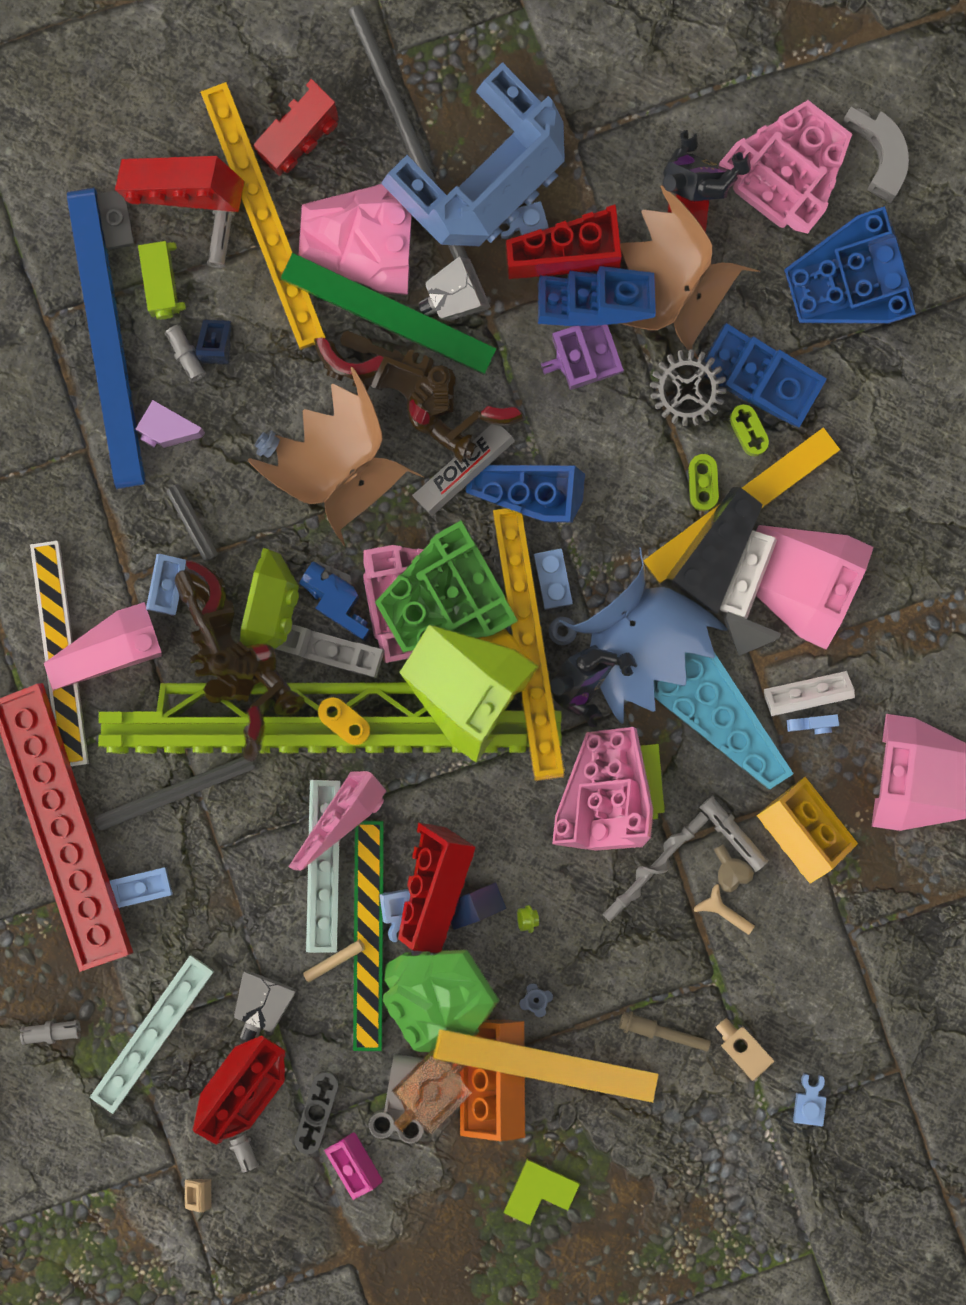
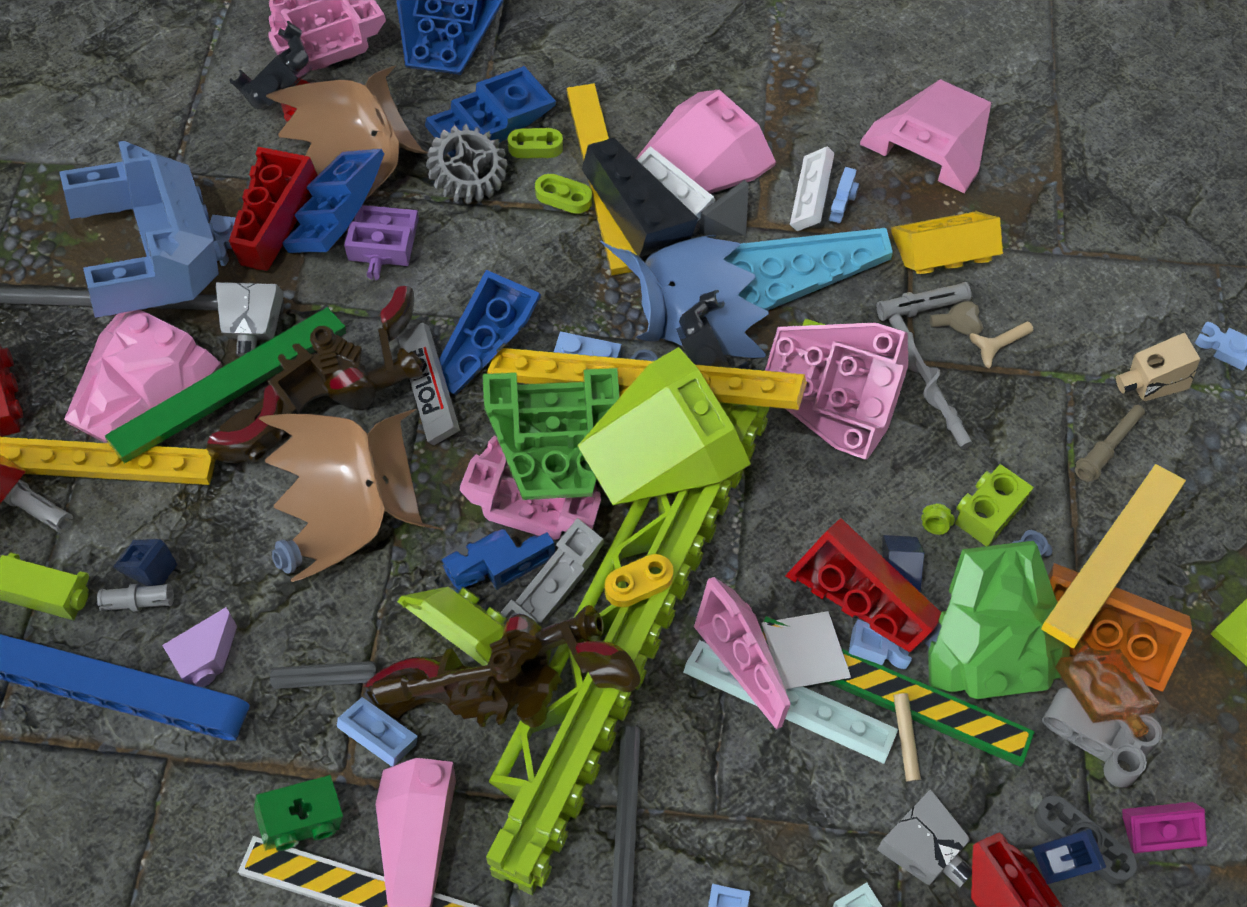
camera: 70 degrees left, 25 degrees down
(98, 570) = (311, 799): none -> green brick
(293, 1107) = (1069, 856): none -> dark blue slope
(368, 862) = (806, 650): none -> white sticker
(555, 965) = (997, 507): none -> lime brick

